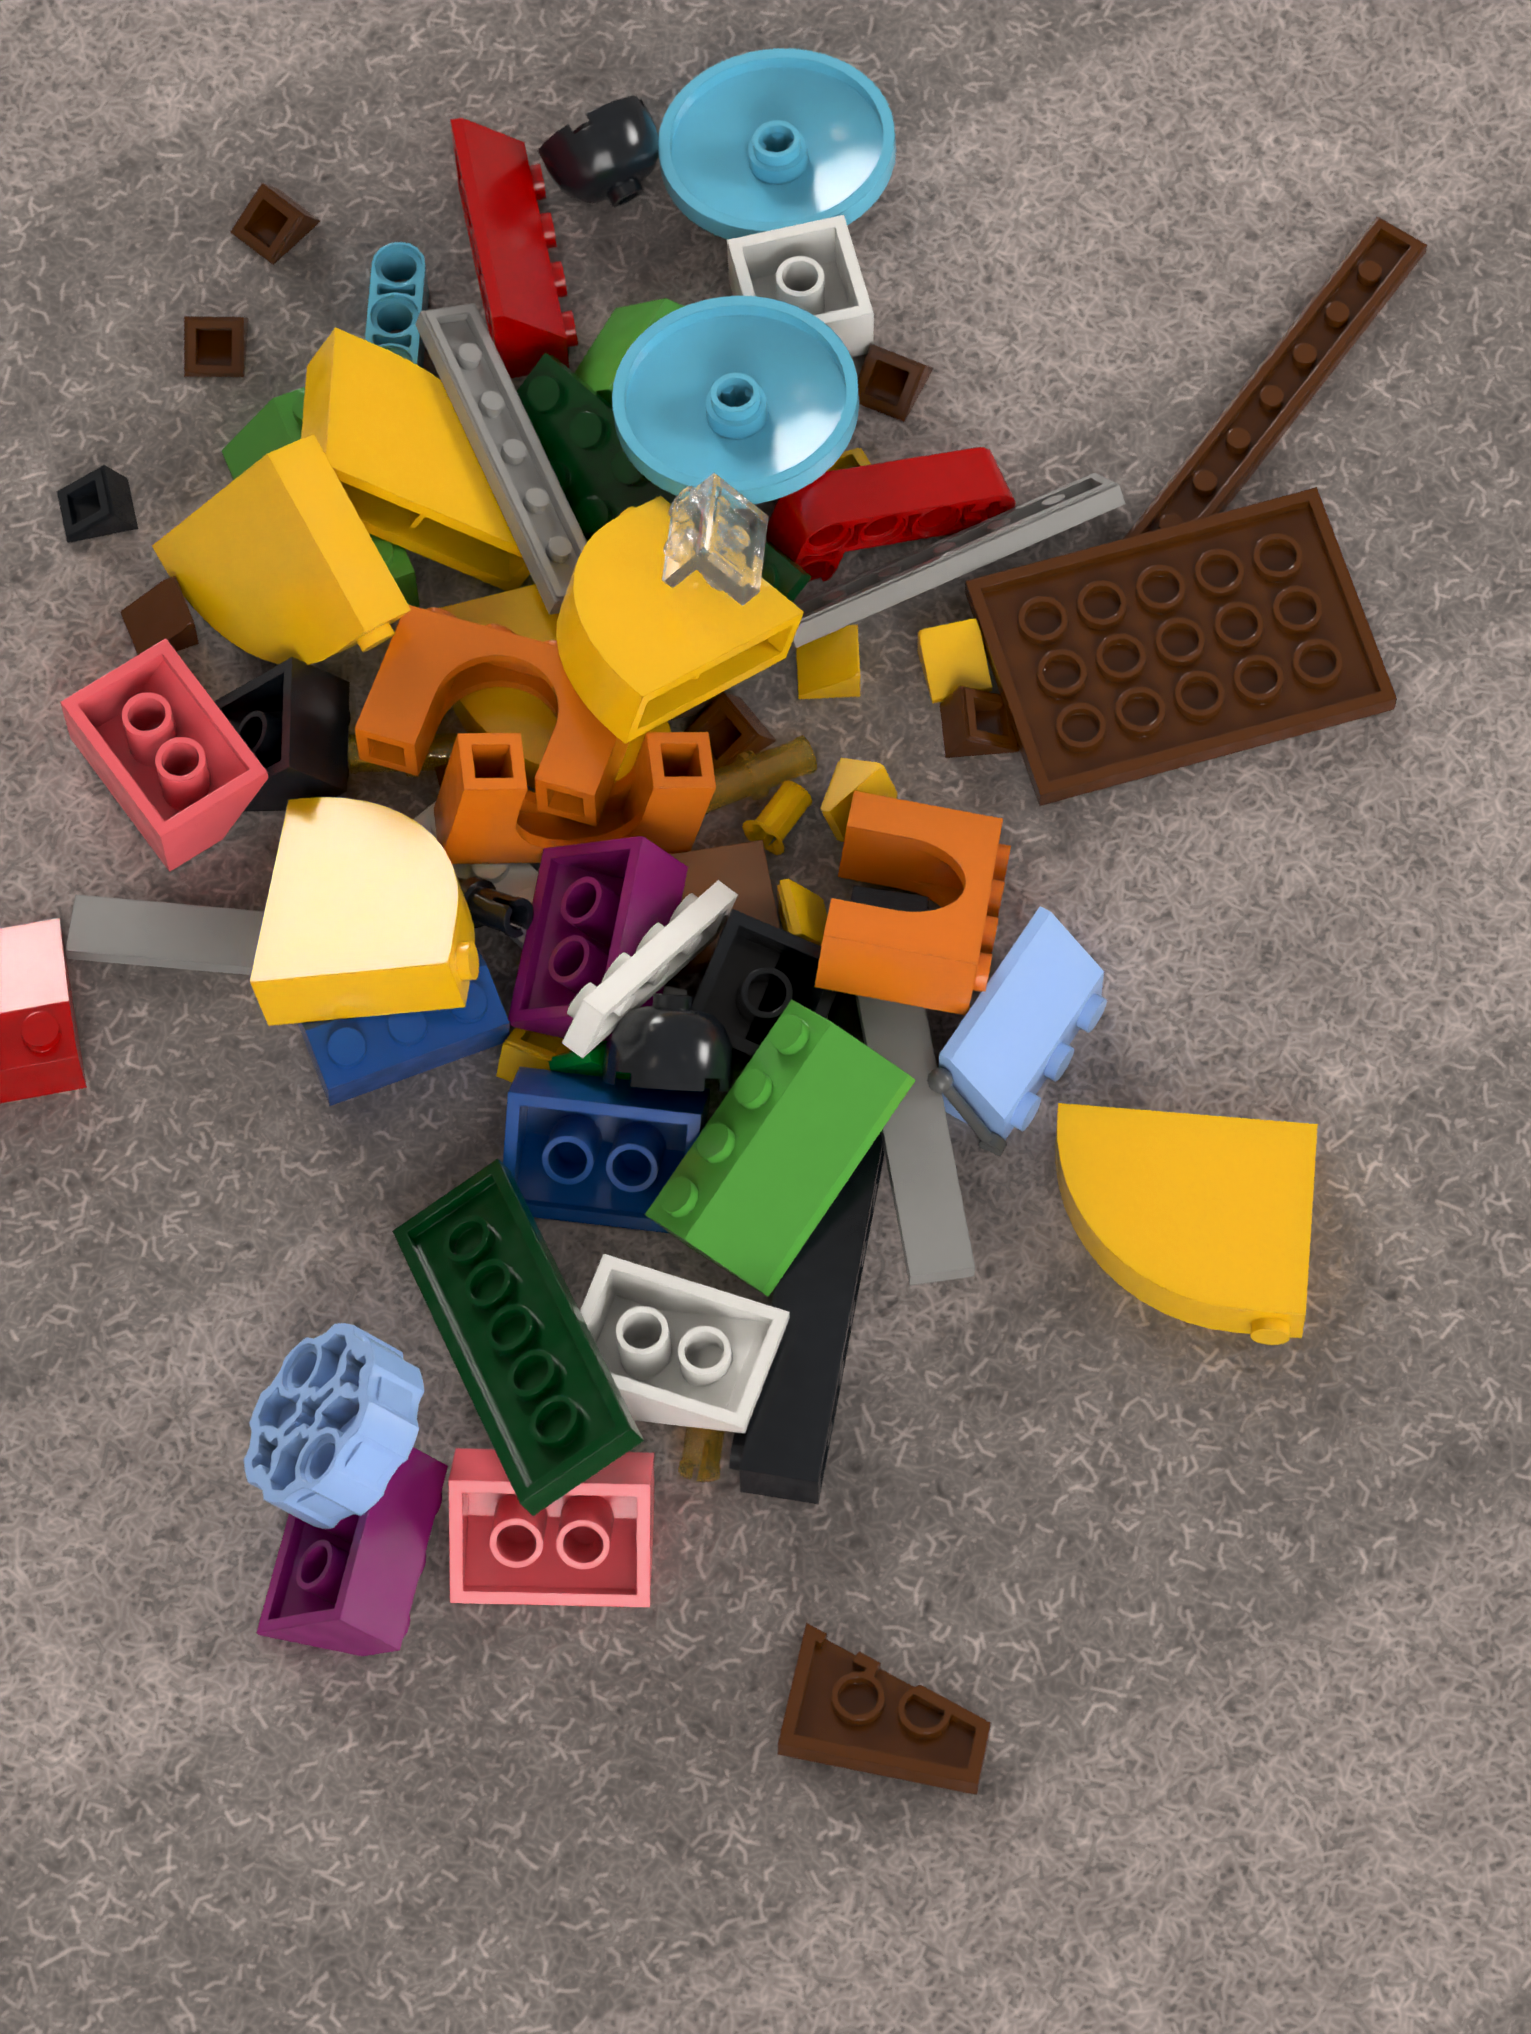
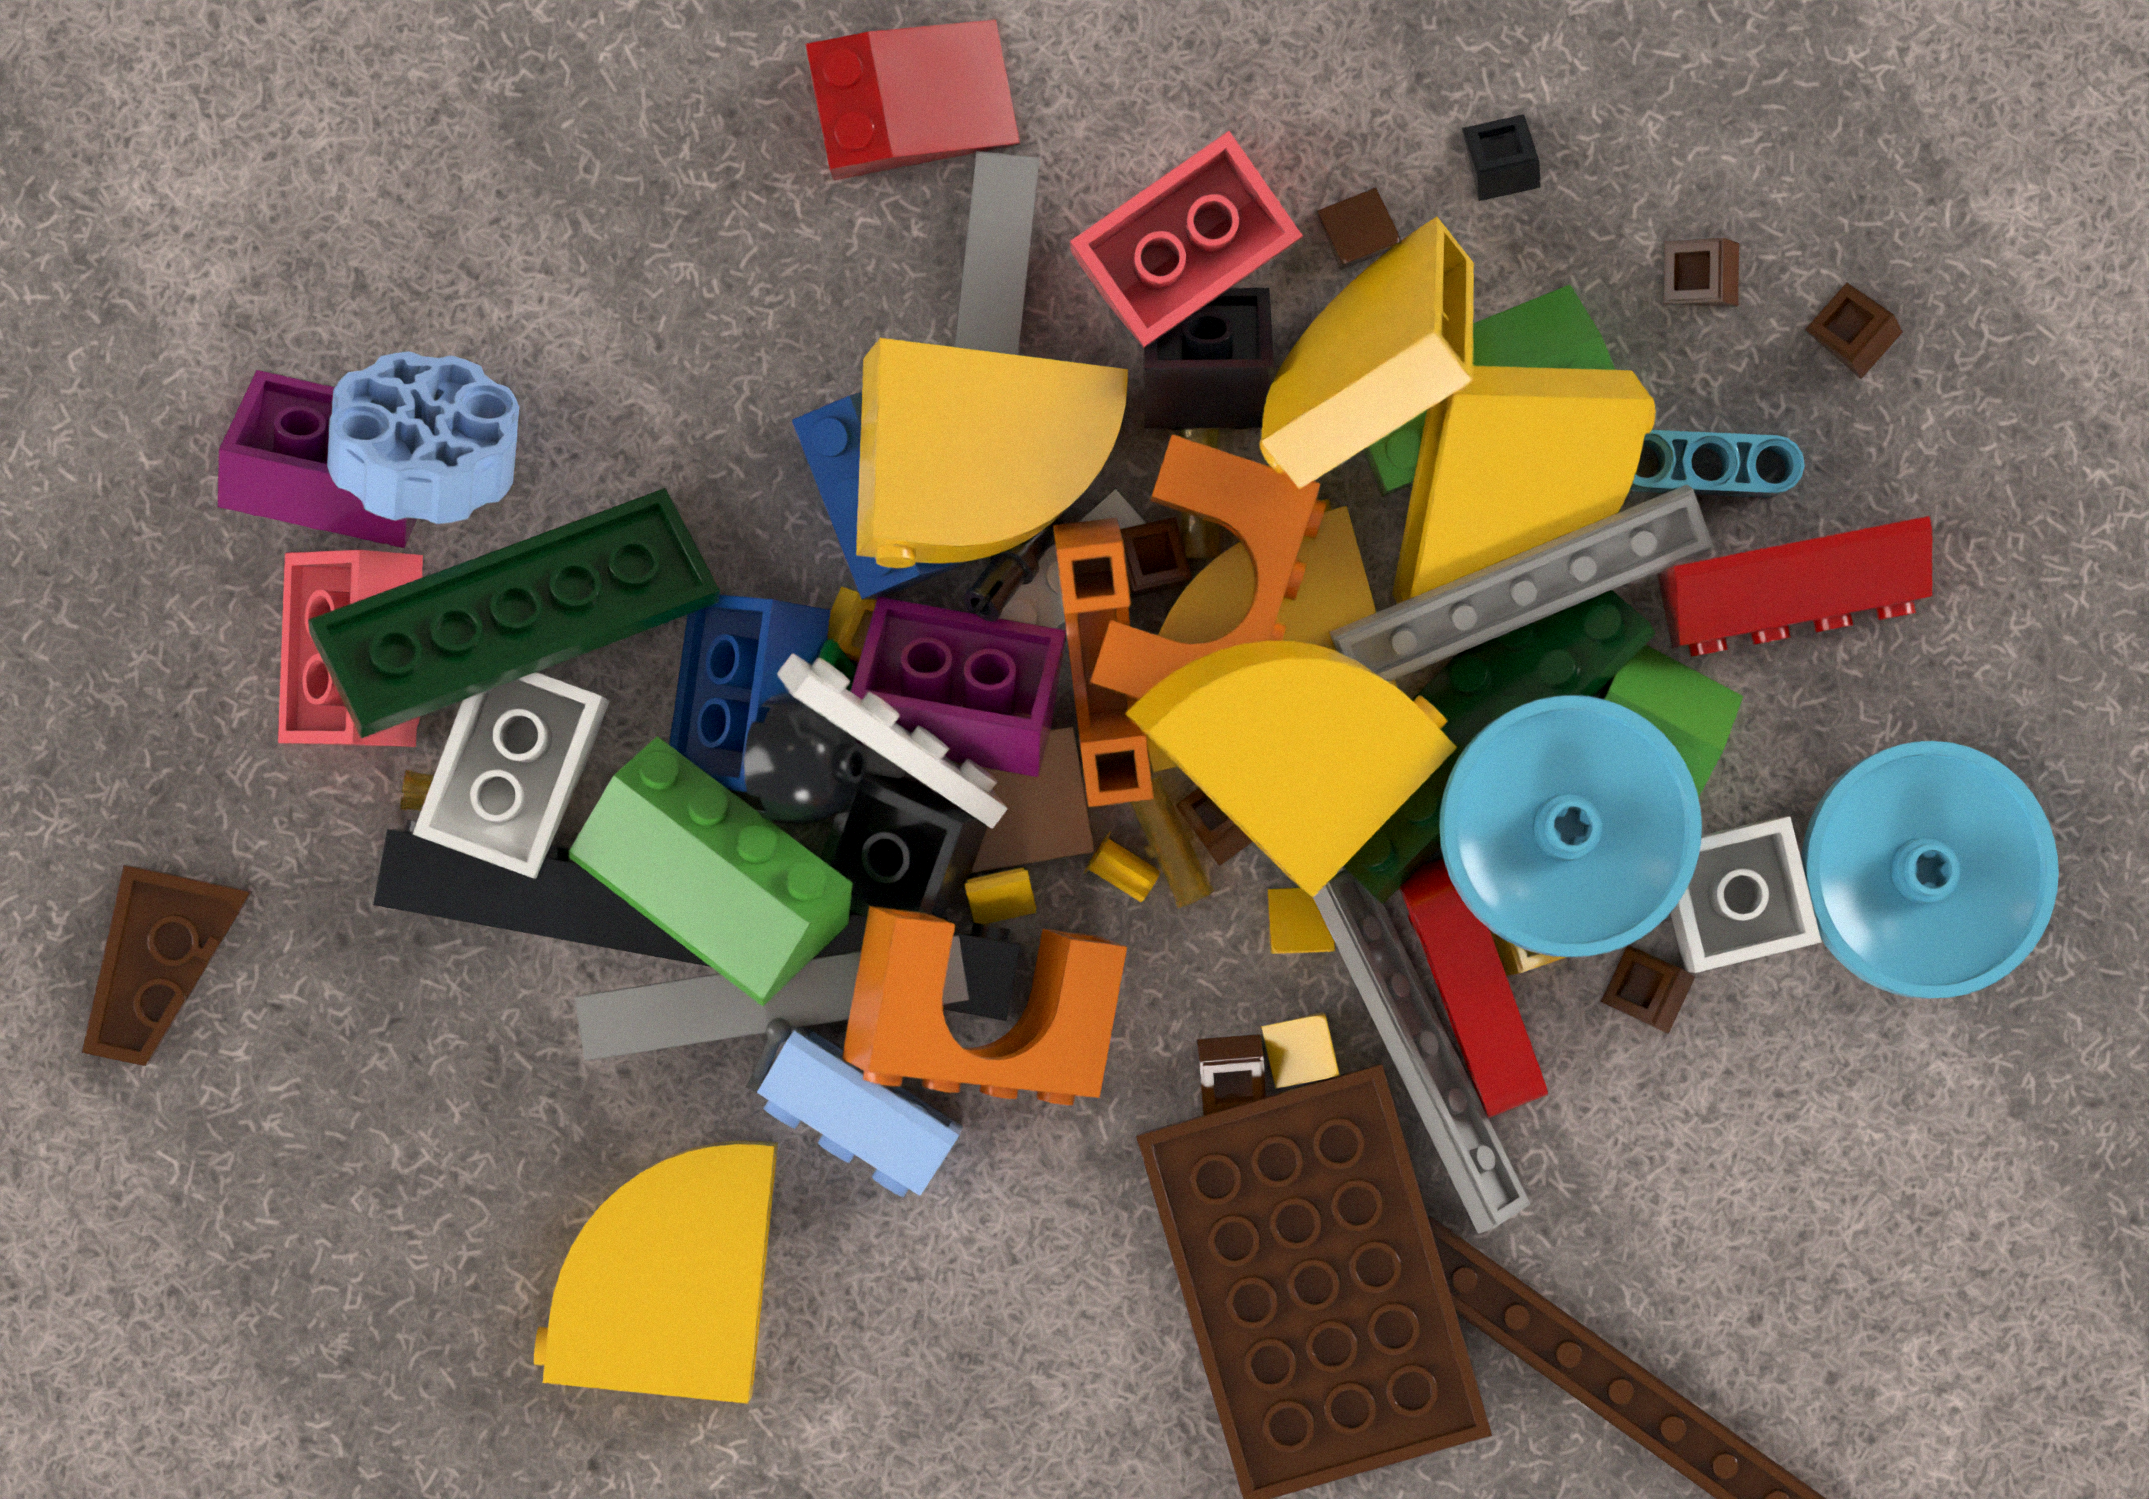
camera: 90 degrees right, 25 degrees up
(605, 154) = (1922, 683): black cylinder -> none
(717, 535) = (1379, 806): clear bracket -> none
(848, 777) = (1143, 942): yellow slope -> none

